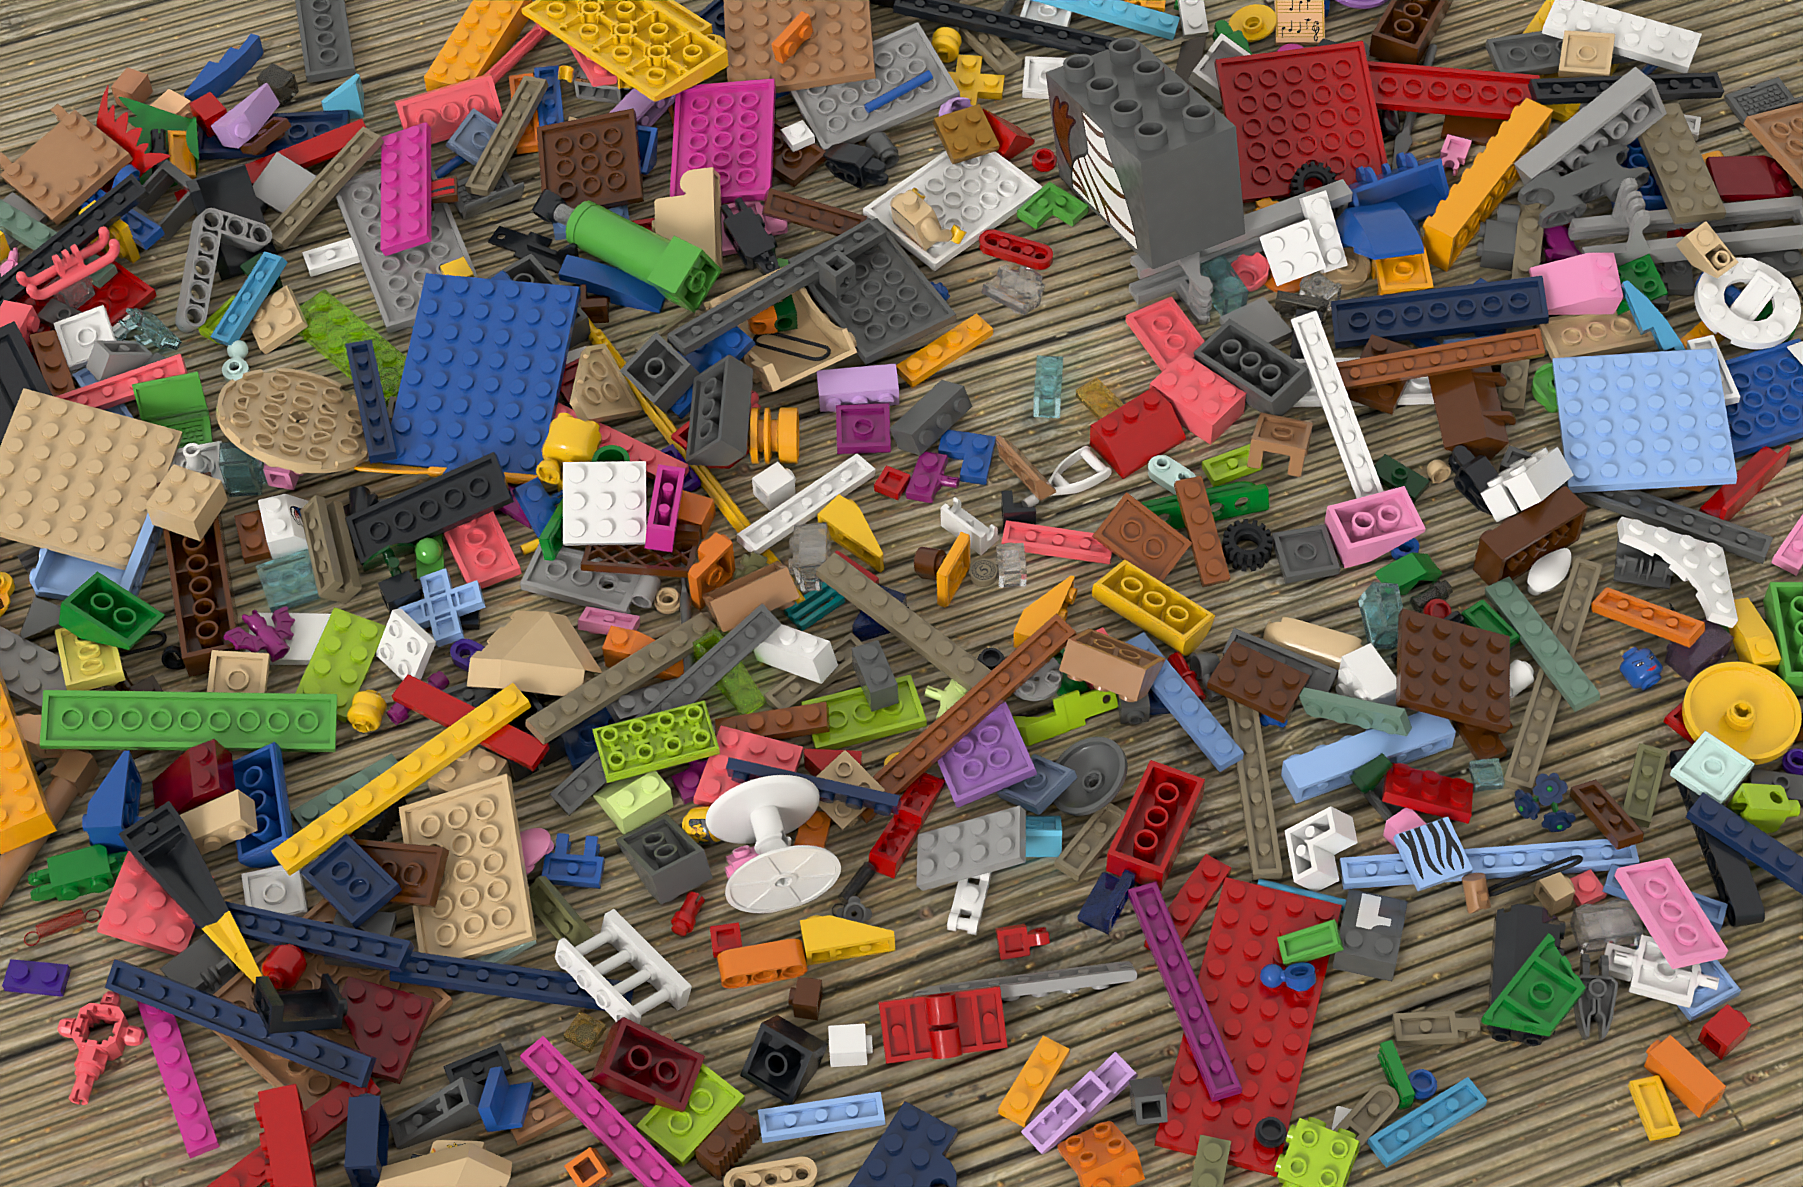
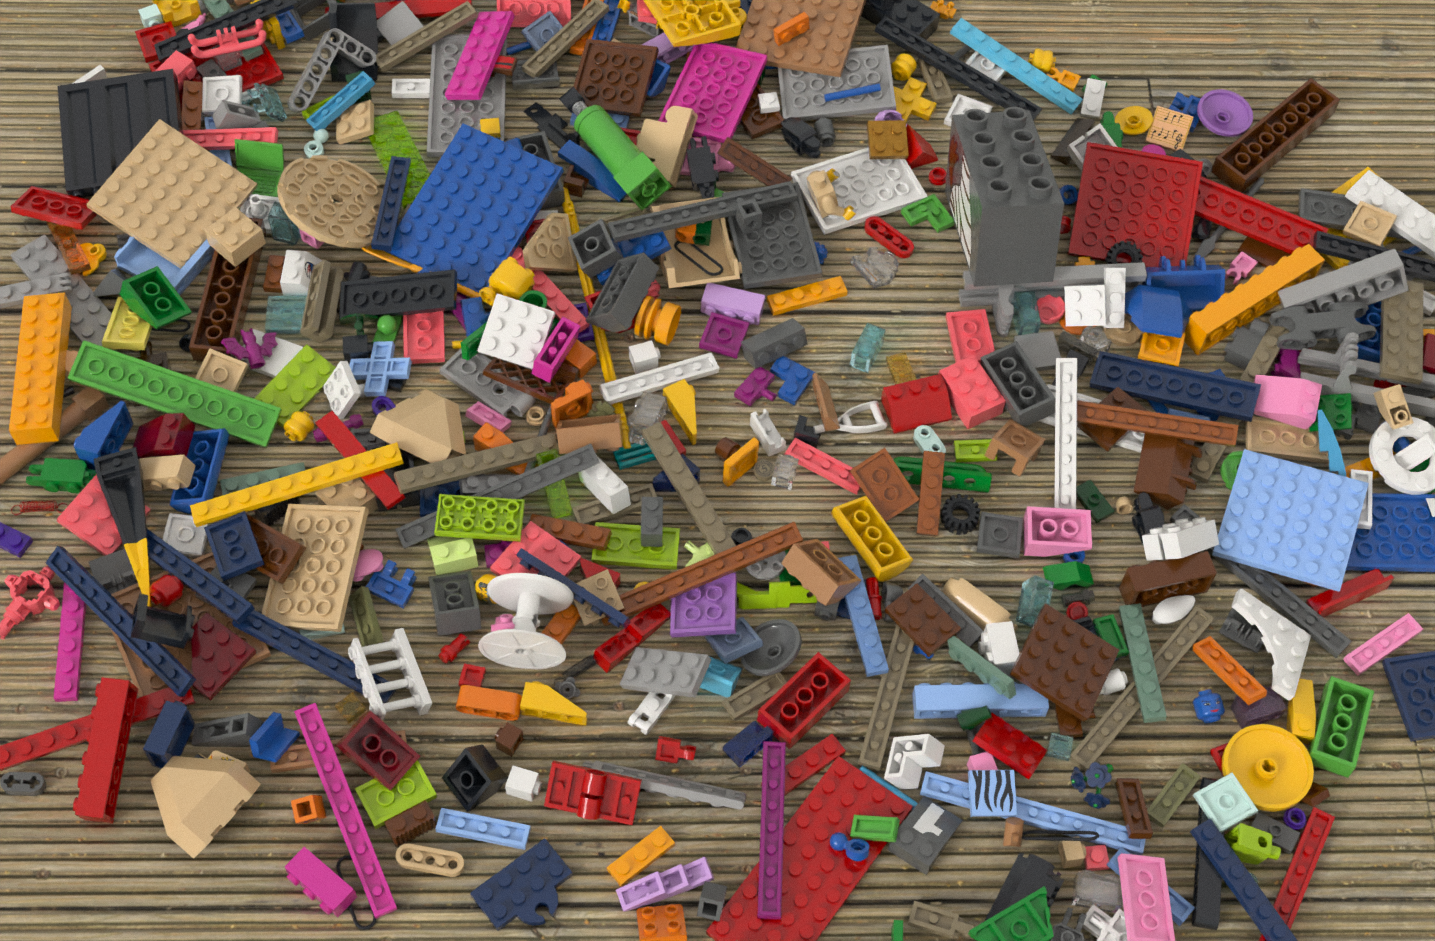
camera: 15 degrees right, 5 degrees up
(478, 1065) = (264, 707): black plate -> none
(892, 482) = (727, 382): red plate -> none
(1045, 608) = (799, 512): light orange slope -> none

